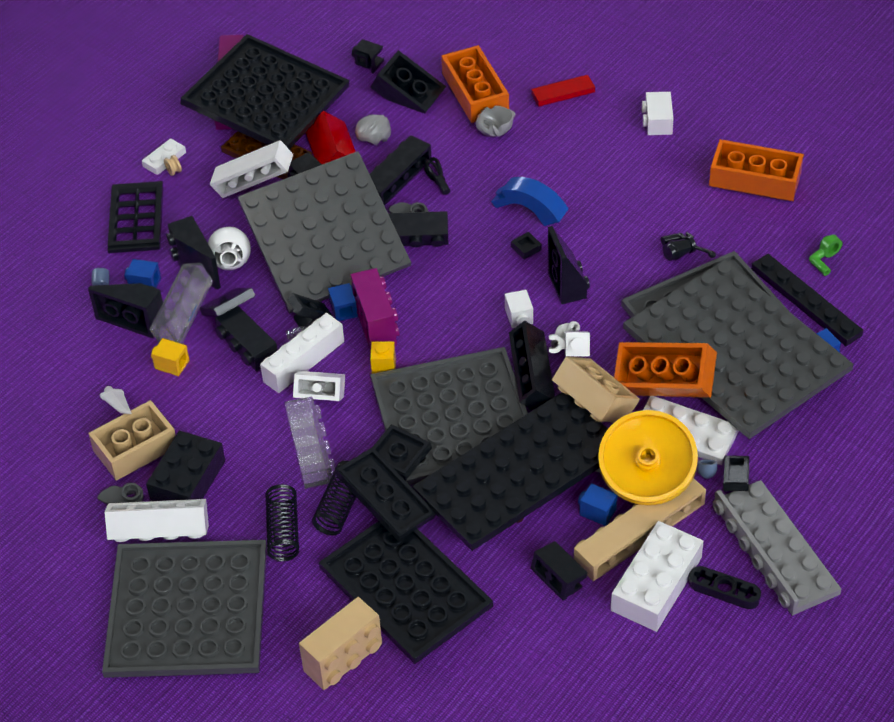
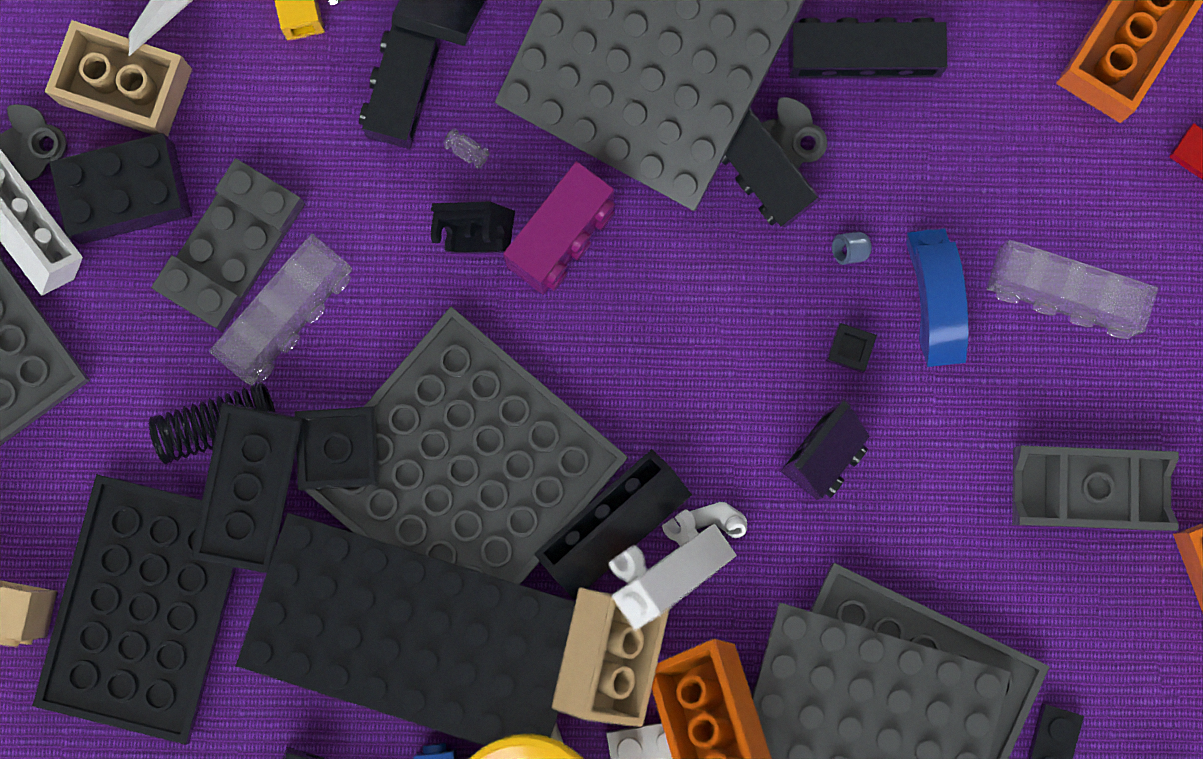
camera: 50 degrees right, 35 degrees up
(255, 446) = (229, 245): none -> dark grey piece
(282, 505) = (83, 409): black piece -> none
(302, 352) = (420, 182): white brick -> none
(307, 309) = (508, 135): black slope -> none
(319, 385) = (378, 254): white brick -> none
(341, 341) = (472, 226): none -> black hinge
(342, 302) = (555, 162): blue brick -> none
(383, 356) = (489, 303): yellow brick -> none
(439, 180) = (899, 124): black piece -> none
(480, 219) = (857, 246): none -> sand blue piece
(495, 121) = (1074, 122): light grey hair -> none
(518, 308) = (715, 427): white brick -> none
(568, 158) = (1072, 289): none -> clear brick
(662, 197) = (1093, 488): none -> dark grey piece
(679, 245) = (998, 576): black piece -> none

